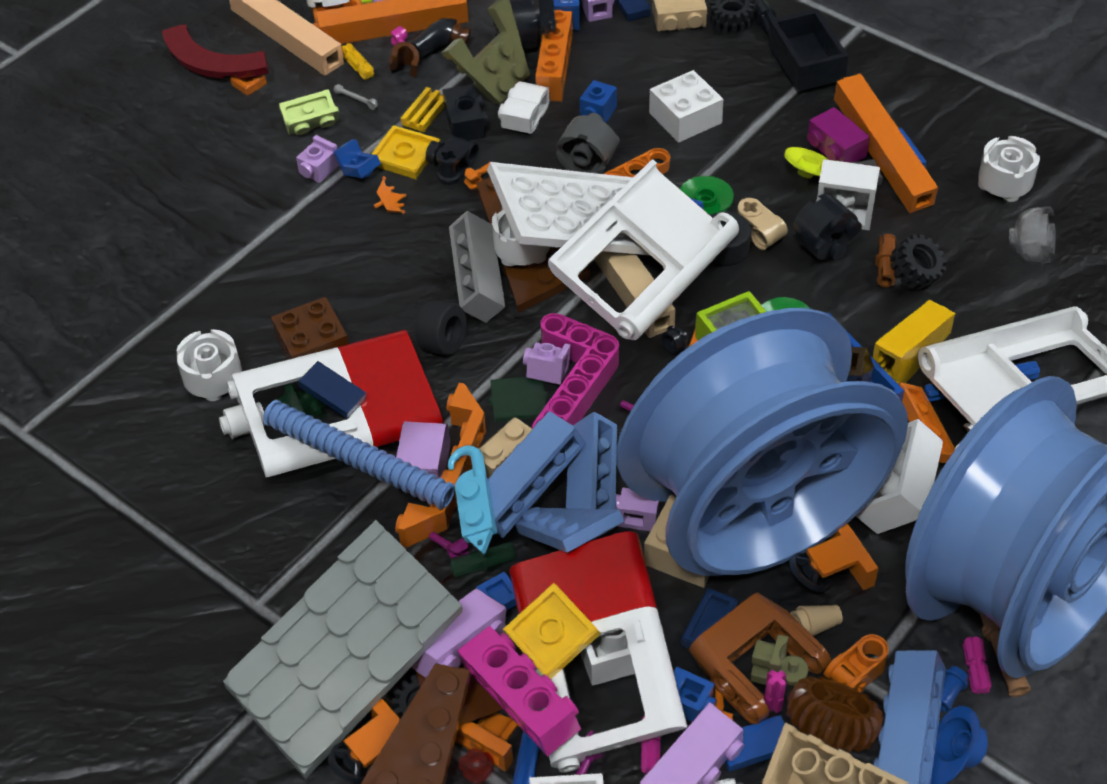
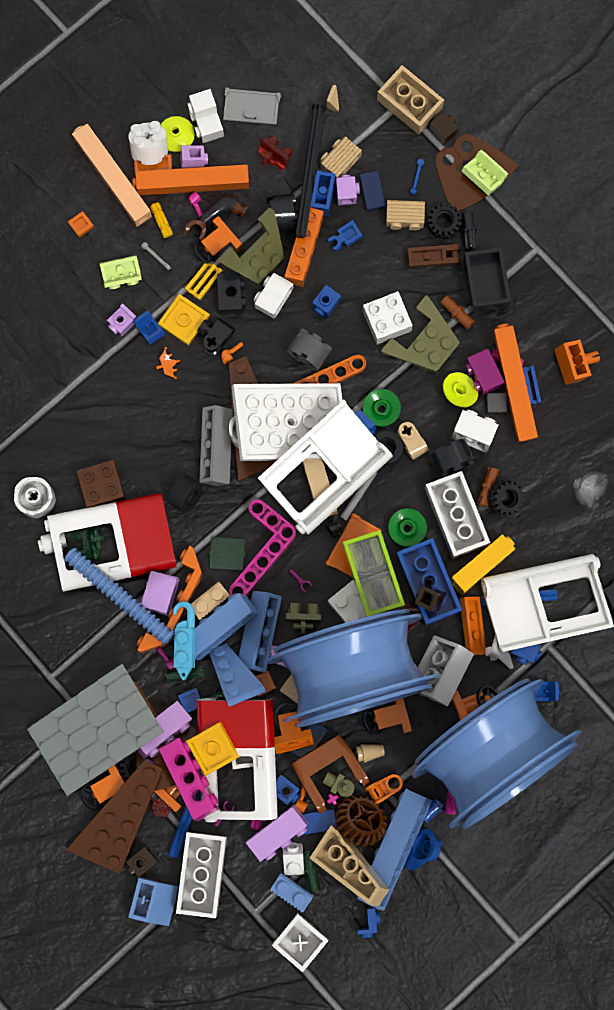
camera: 10 degrees right, 30 degrees up
(211, 63) = (50, 202): dark red tile -> none
(332, 389) = (109, 540): dark blue tile -> none
(432, 65) = (216, 242): none -> orange piece
(547, 362) = (249, 539): lavender brick -> none
(608, 39) = (348, 234): none -> blue plate
(681, 608) = (292, 737): none -> orange piece
(700, 298) = (356, 498): none -> light grey bar
(729, 44) = (433, 256): none -> reddish brown plate
(753, 132) = (431, 346): none -> olive wing
(779, 91) = (457, 312): none -> dark orange pin
(852, 289) = (457, 515): none -> white brick
(955, 110) = (574, 361): none -> orange brick
(1008, 167) = (593, 413): white brick -> none

